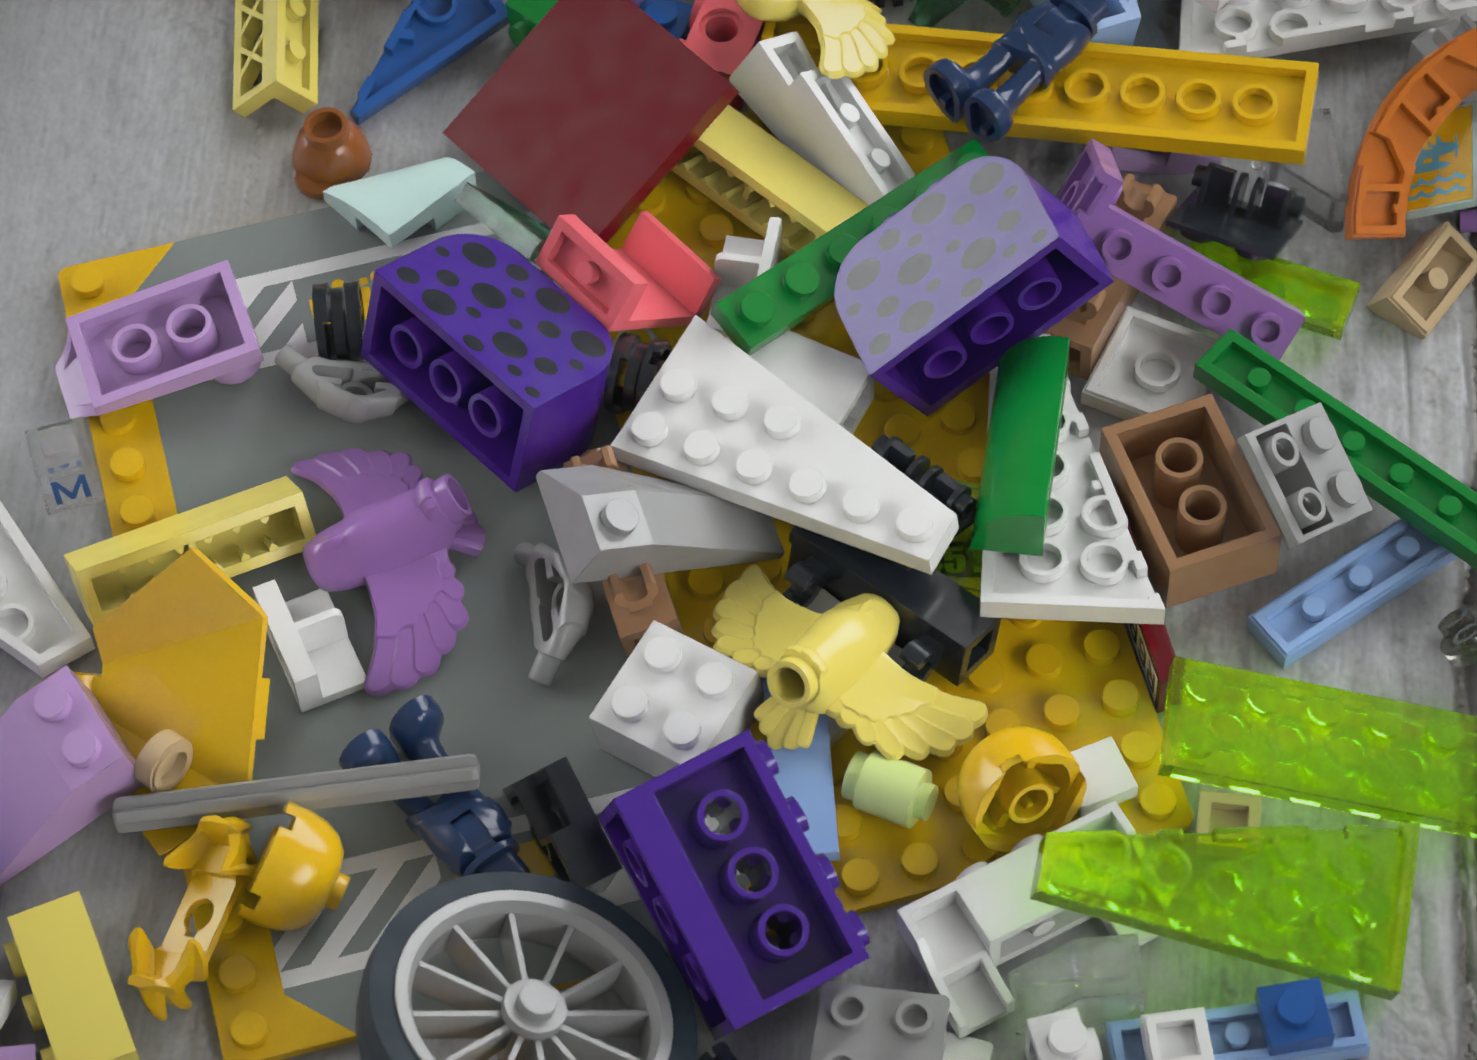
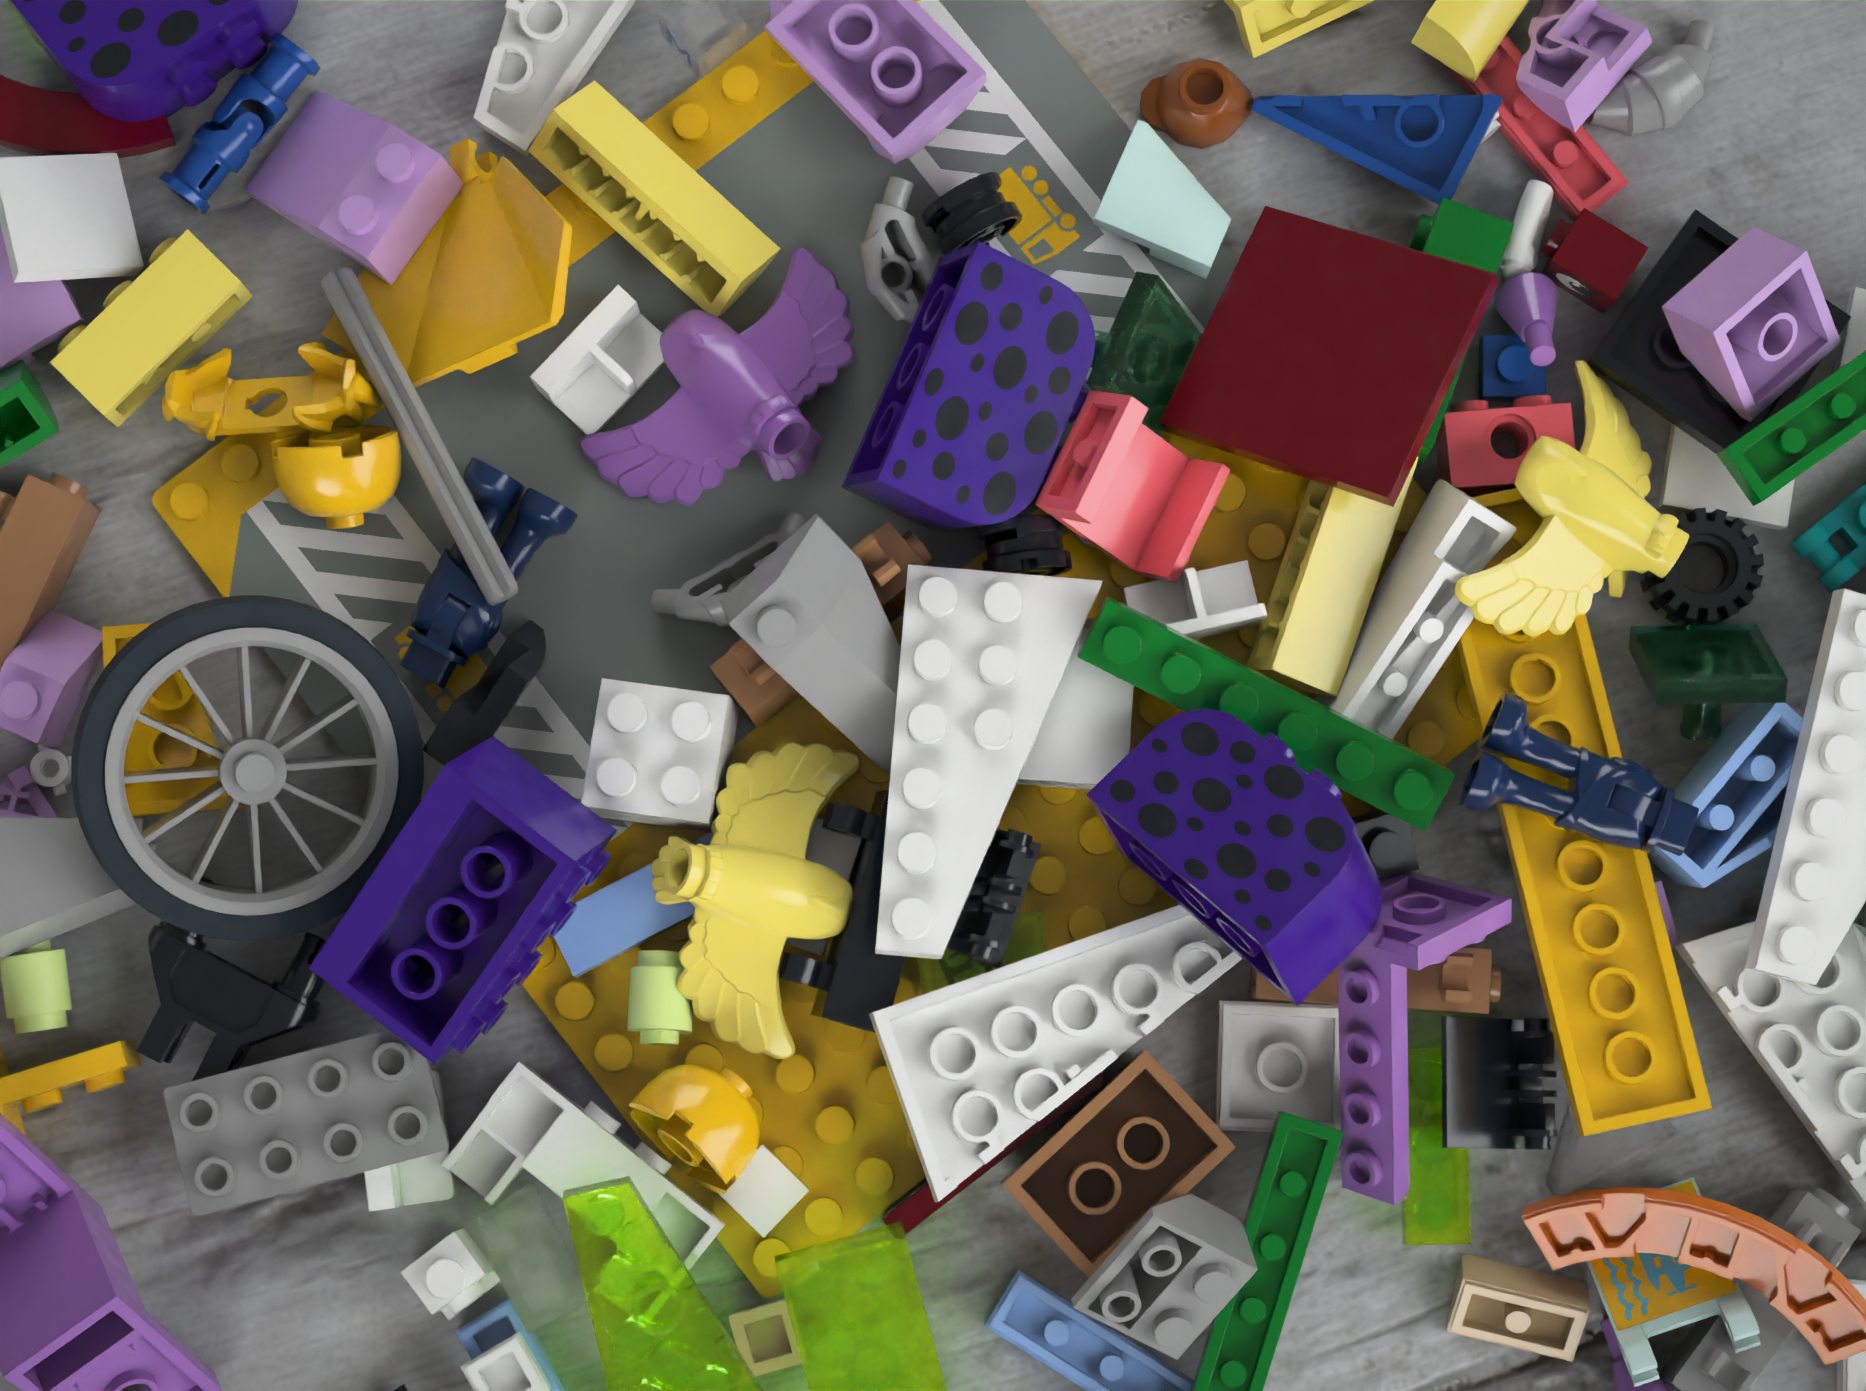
camera: 60 degrees right, 25 degrees up
(163, 761) = (401, 293): tan tile -> none
(1022, 447) = (1076, 980): green brick -> none

